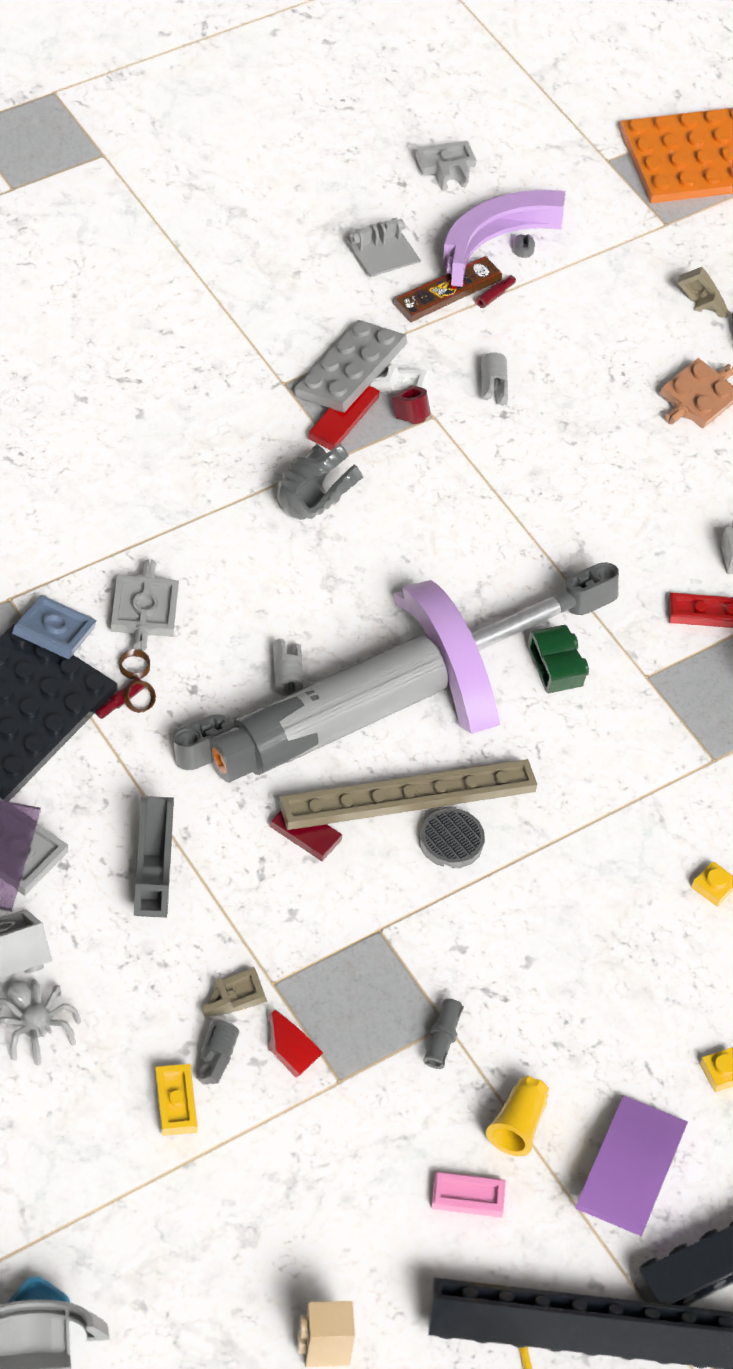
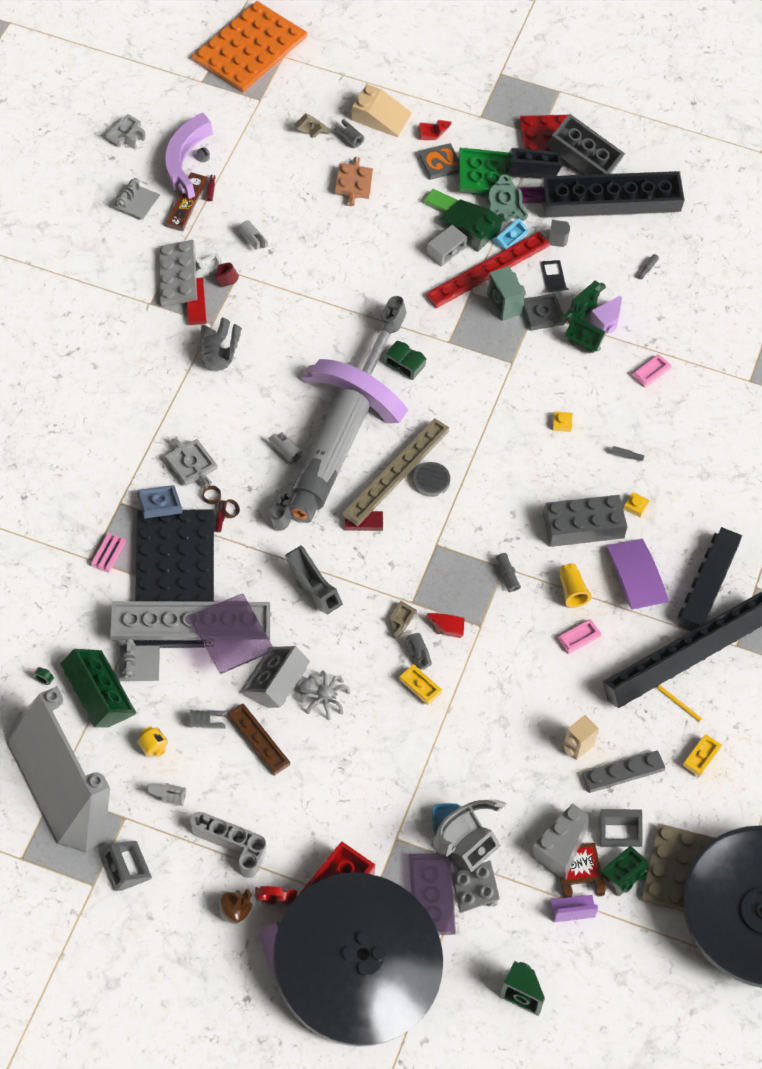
camera: 35 degrees left, 5 degrees up
(620, 1037) = (585, 520): none -> dark grey brick

